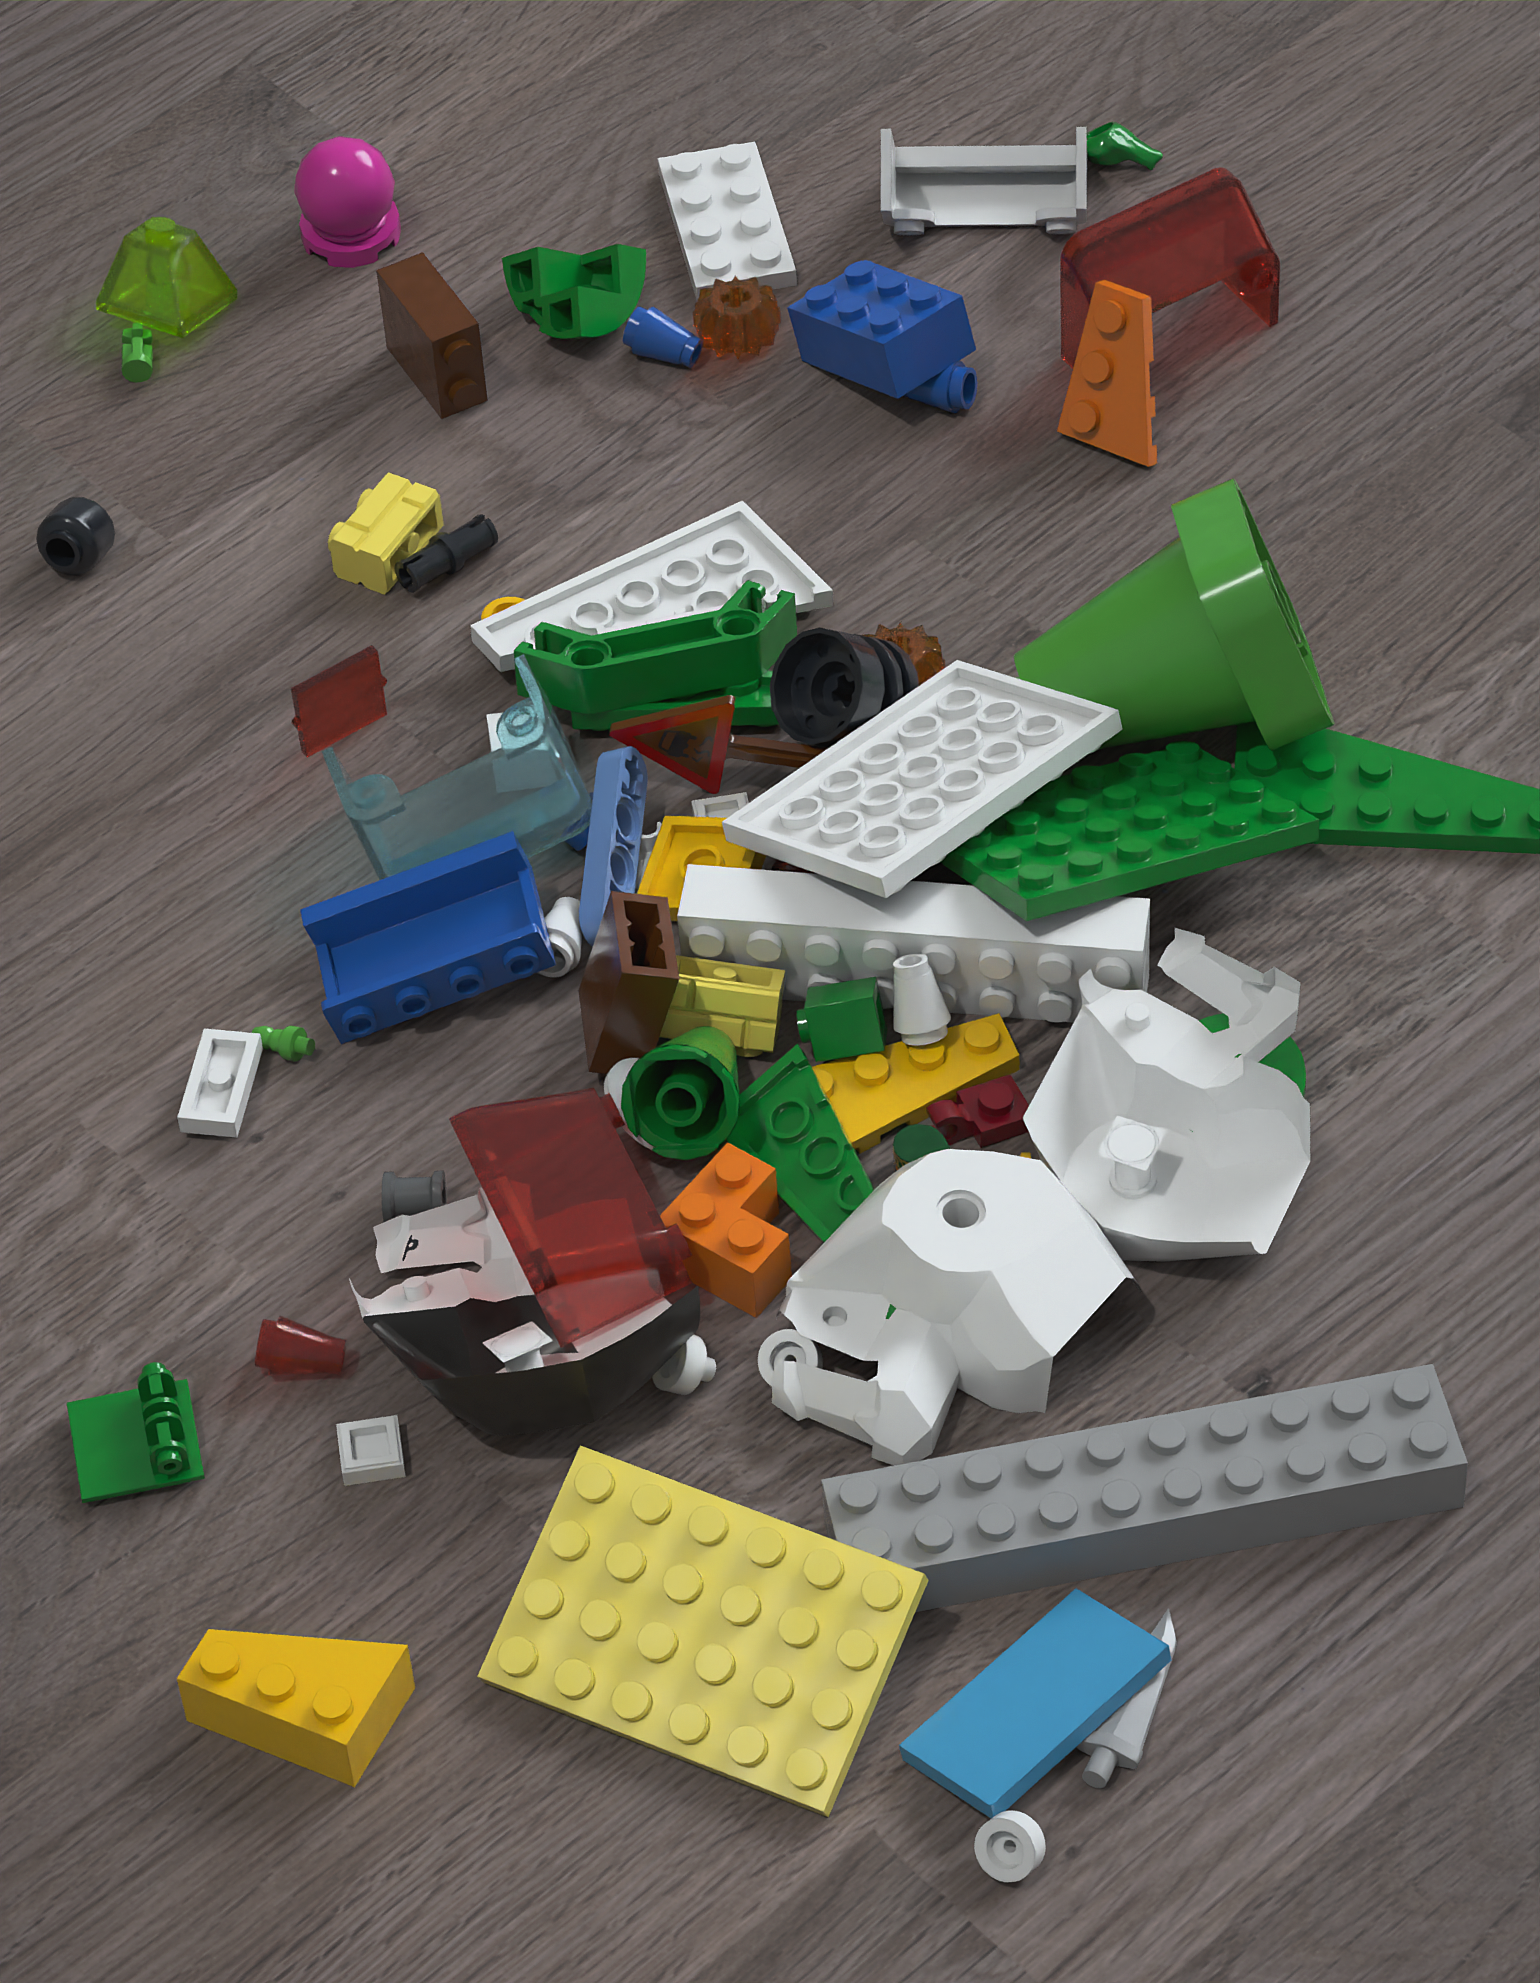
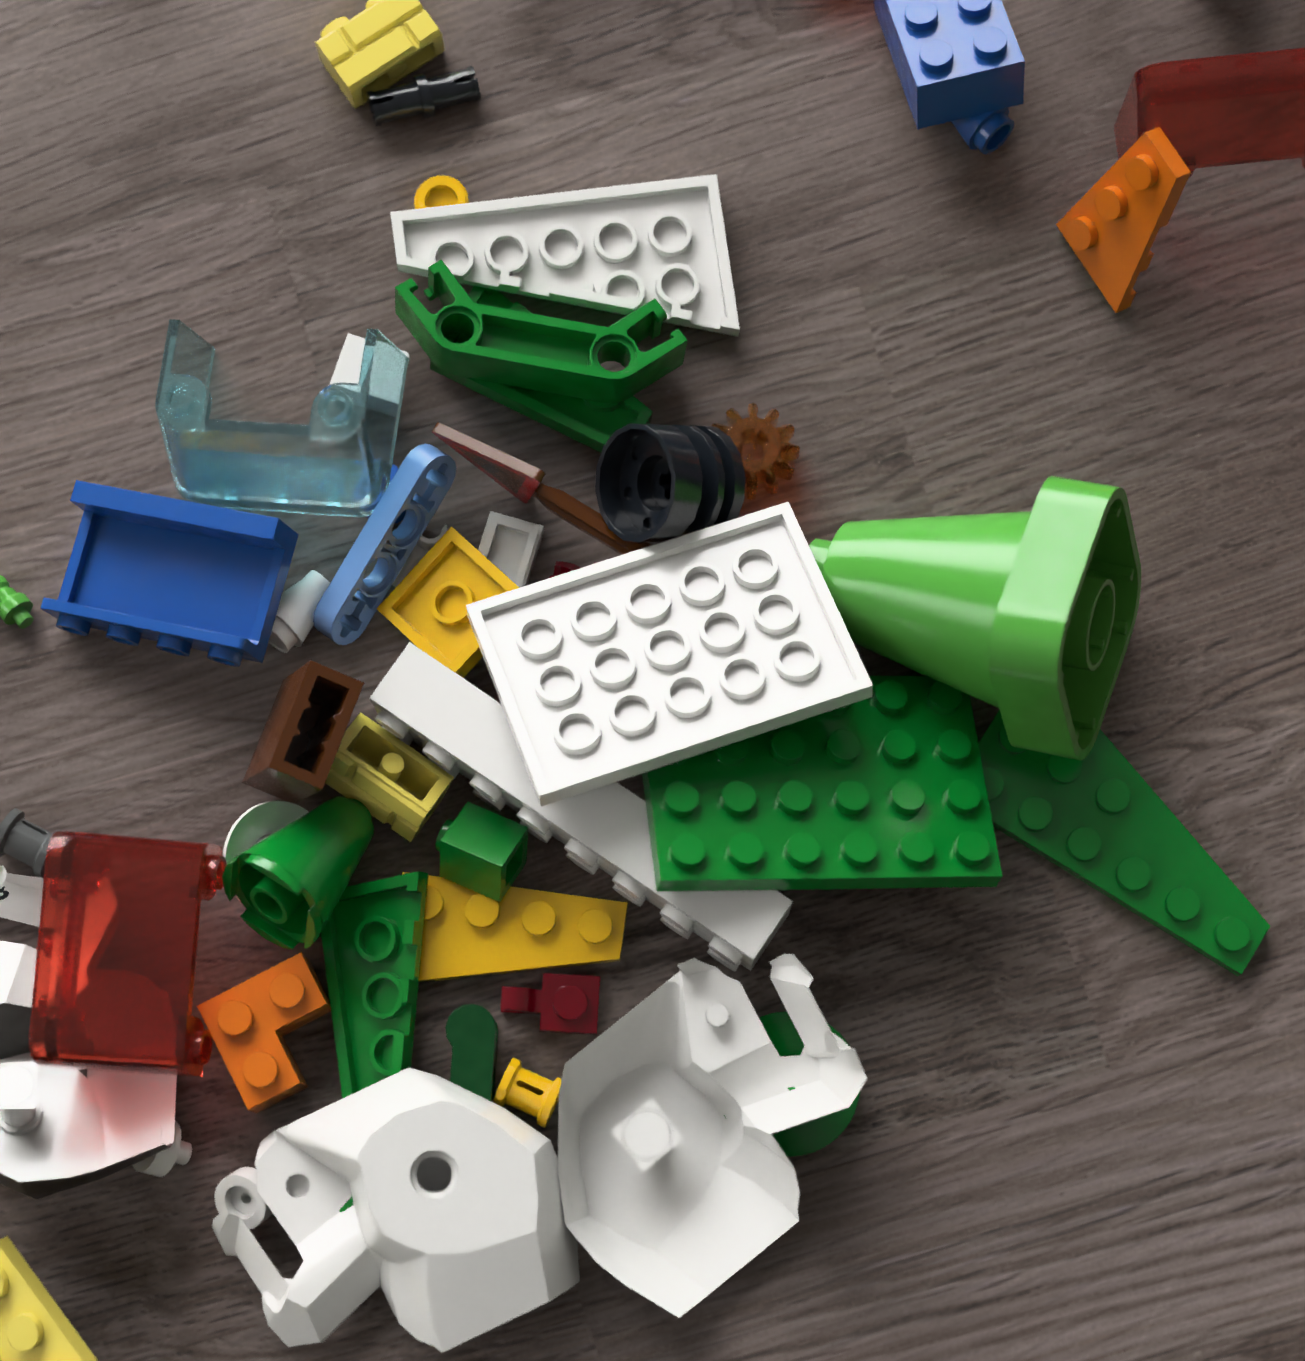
camera: 25 degrees right, 30 degrees up
(339, 701) = (231, 242): clear red piece -> none
(918, 1002) = (546, 882): white cone -> none

